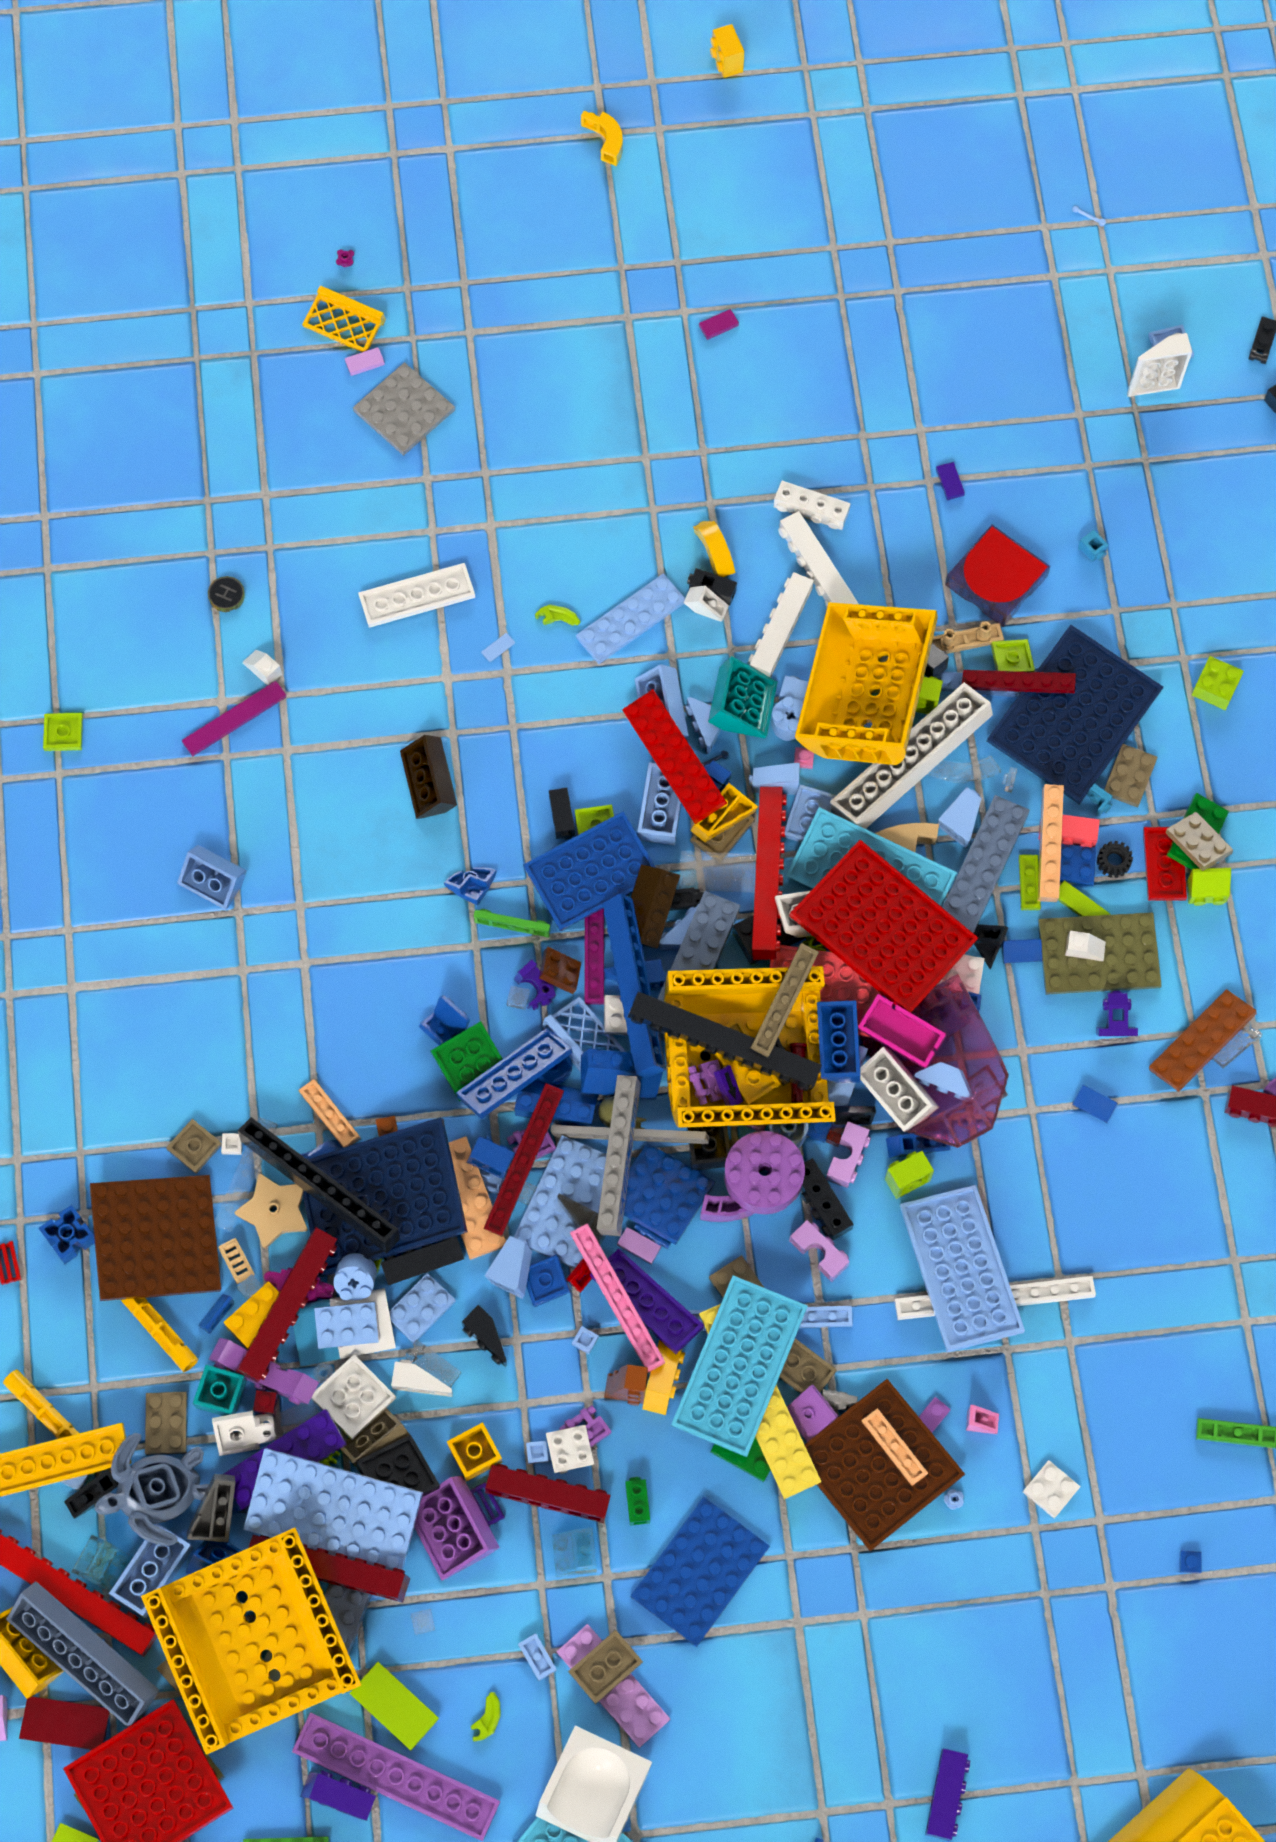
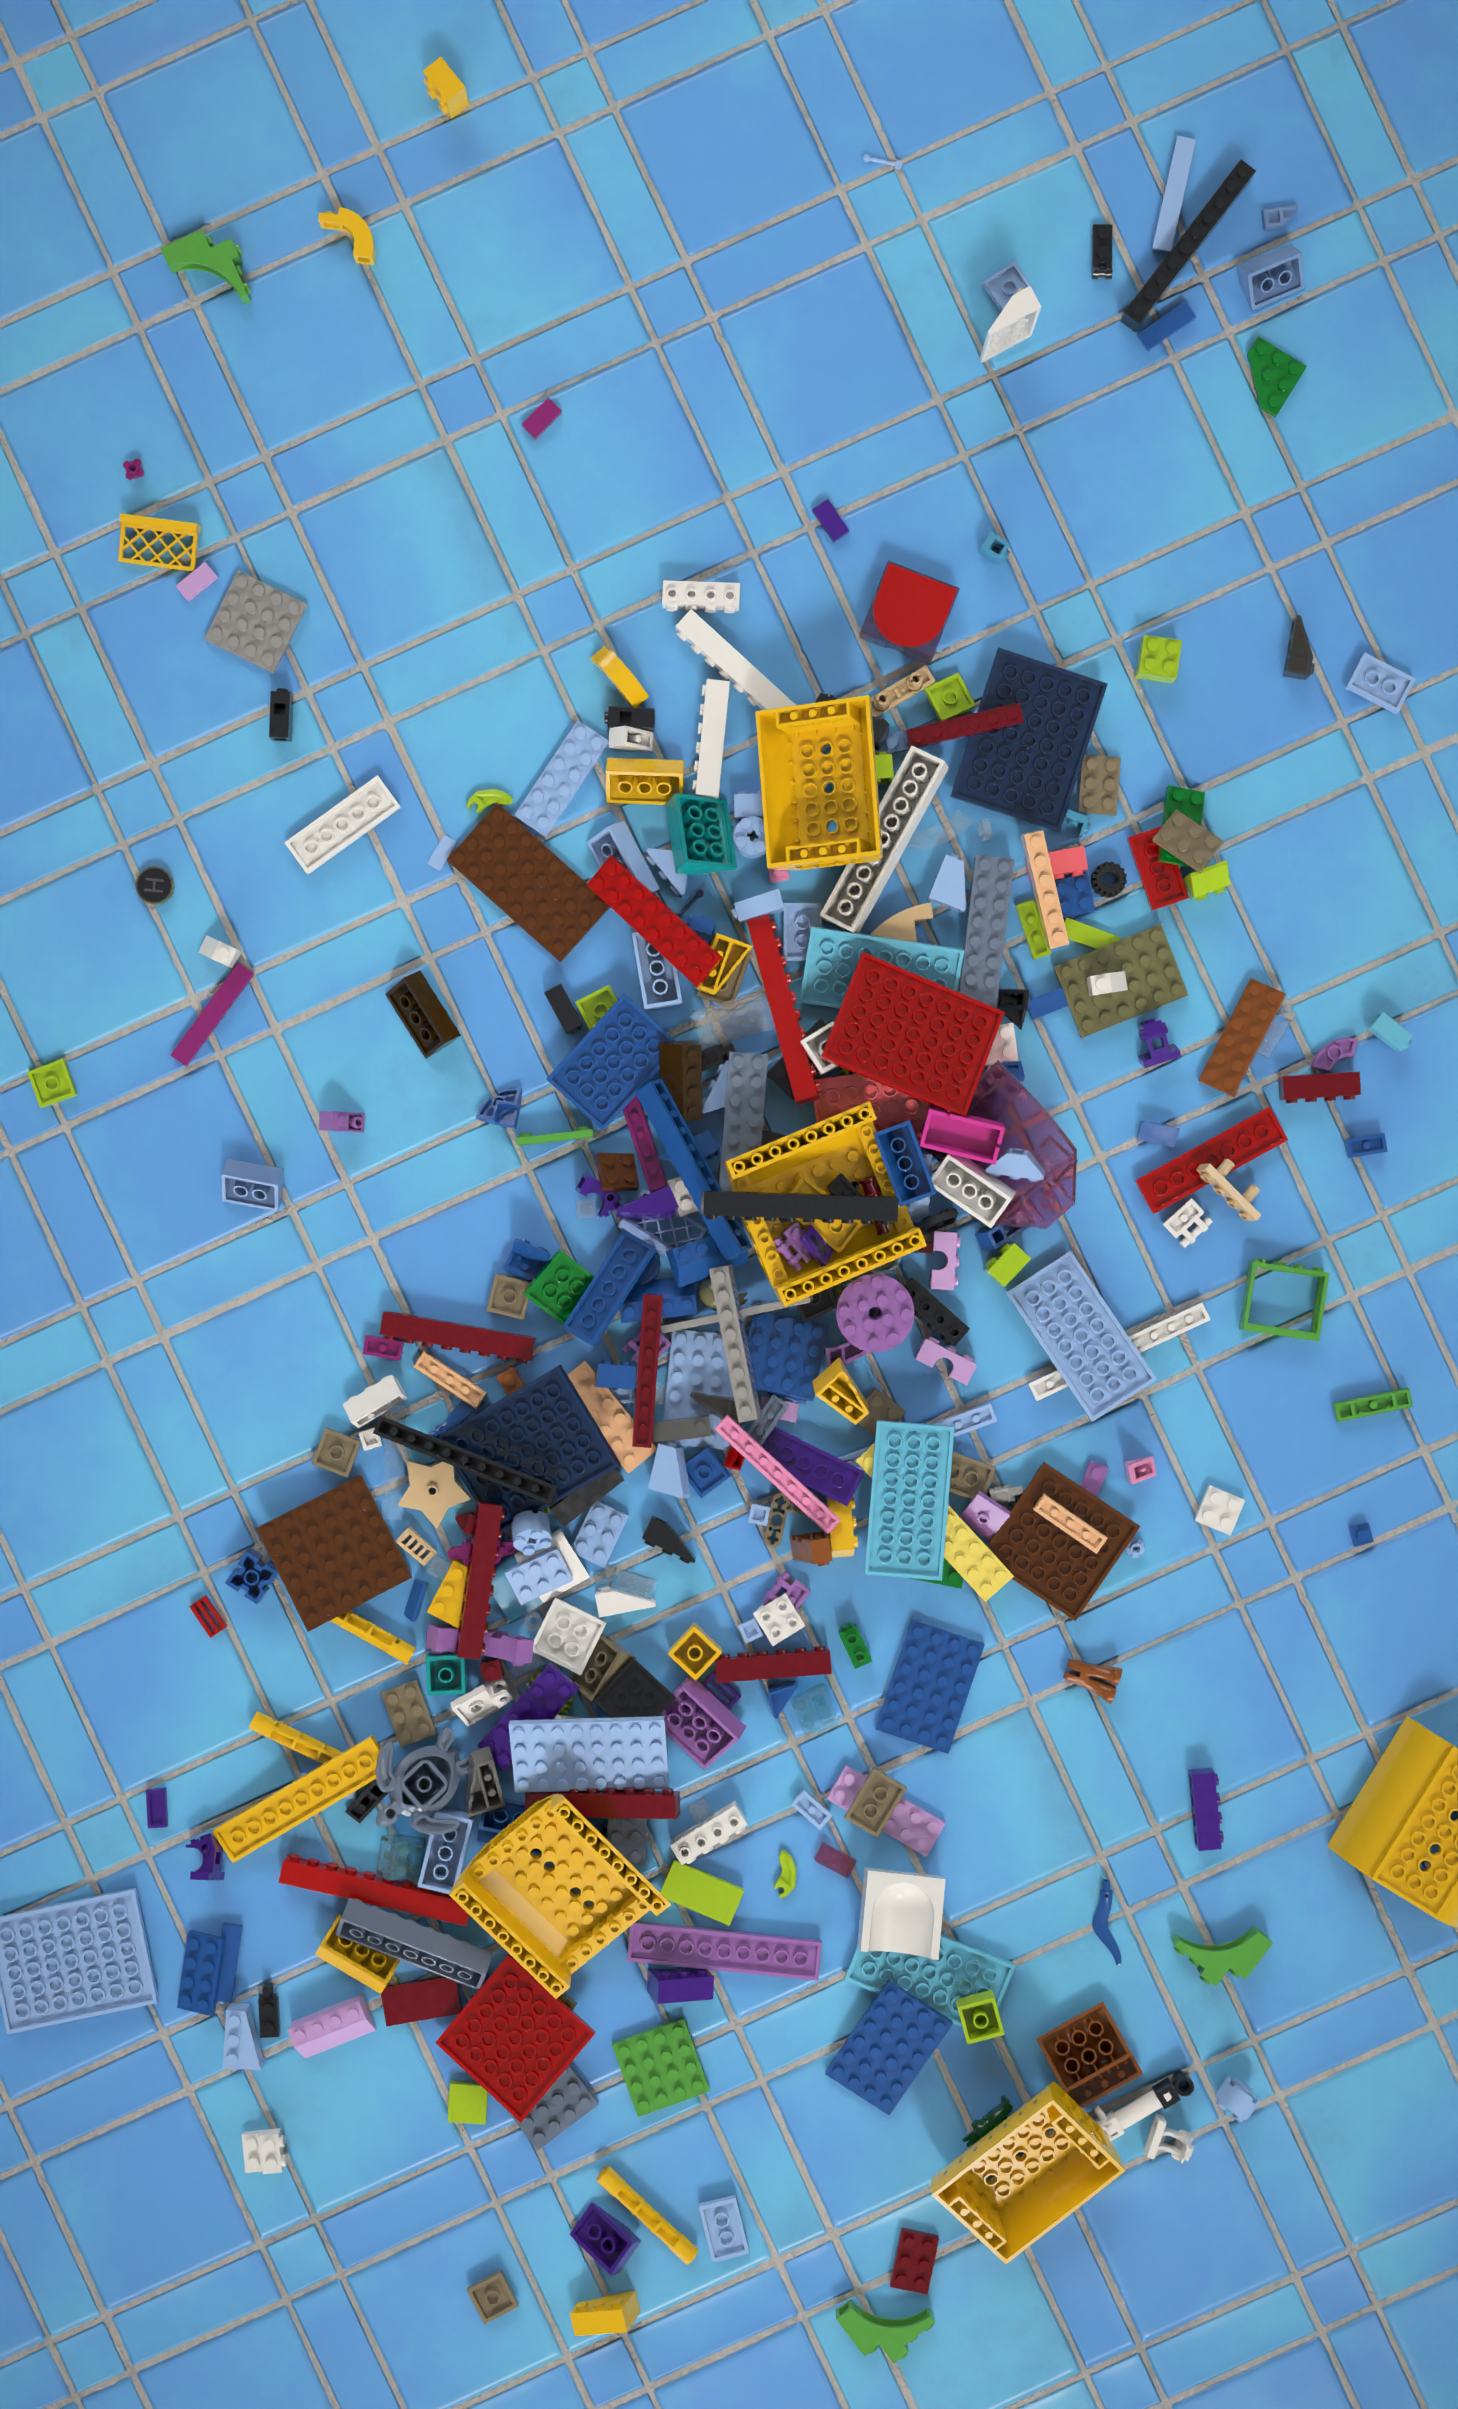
camera: 15 degrees left, 20 degrees up
(259, 1105) = (374, 1401): none -> white brick
(276, 1063) = (383, 1347): none -> magenta plate
(292, 1252) = (466, 1522): none -> dark red tile
(316, 846) = (341, 1121): none -> medium lavender slope
(352, 1074) = (457, 1335): none -> dark red brick
(396, 489) = (281, 715): none -> black brick
(414, 1055) = (508, 1297): none -> dark tan plate
(423, 1645) = (708, 1833): none -> white brick
(469, 113) = (200, 253): none -> bright green arch
(539, 1228) = (682, 1428): none -> dark grey slope
(543, 1720) = (835, 1860): none -> clear pink plate
(544, 1527) = (780, 1695): none -> blue slope
(569, 697) = (528, 882): none -> reddish brown plate
(579, 1009) = (652, 1206): none -> dark purple slope
(615, 1342) = (787, 1507): none -> dark tan beam
(626, 1246) = (769, 1418): none -> sand blue plate
(704, 640) = (643, 780): none -> yellow slope
(706, 1240) = (840, 1392): none -> yellow wedge
(784, 1000) = (844, 1151): dark tan plate -> none
(887, 1616) = (1104, 1690): none -> dark orange piece
(1096, 1191) = (1185, 1217): none -> white plate
(1139, 1144) = (1238, 1143): none -> red plate
(1150, 1180) = (1222, 1187): none -> tan plate
(1162, 1329) = (1318, 1308): none -> bright green window

